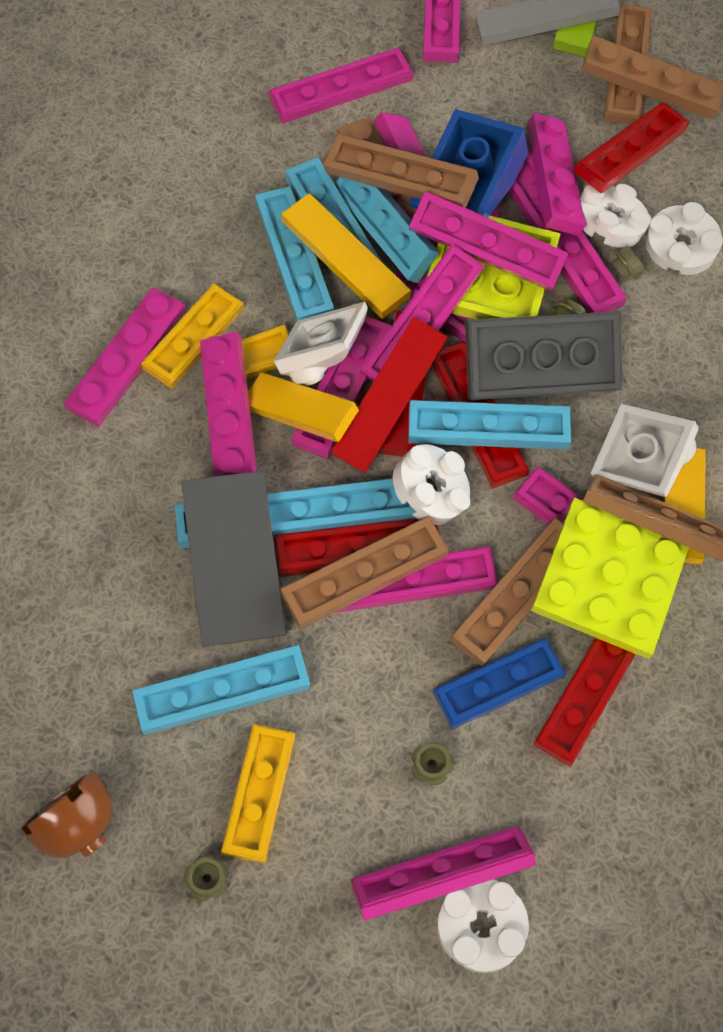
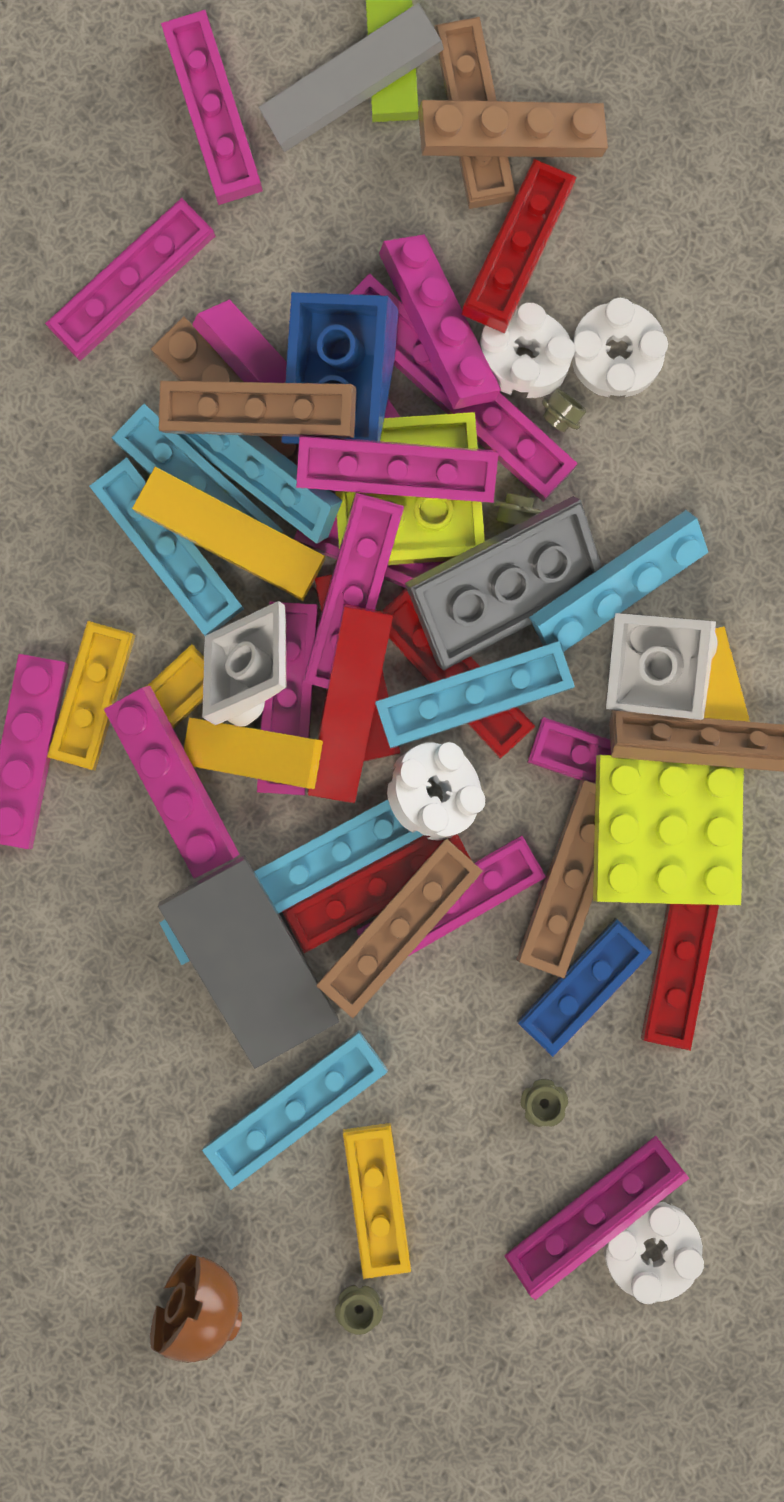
camera: 15 degrees left, 20 degrees up
(638, 387) = (621, 582): none -> medium azure plate

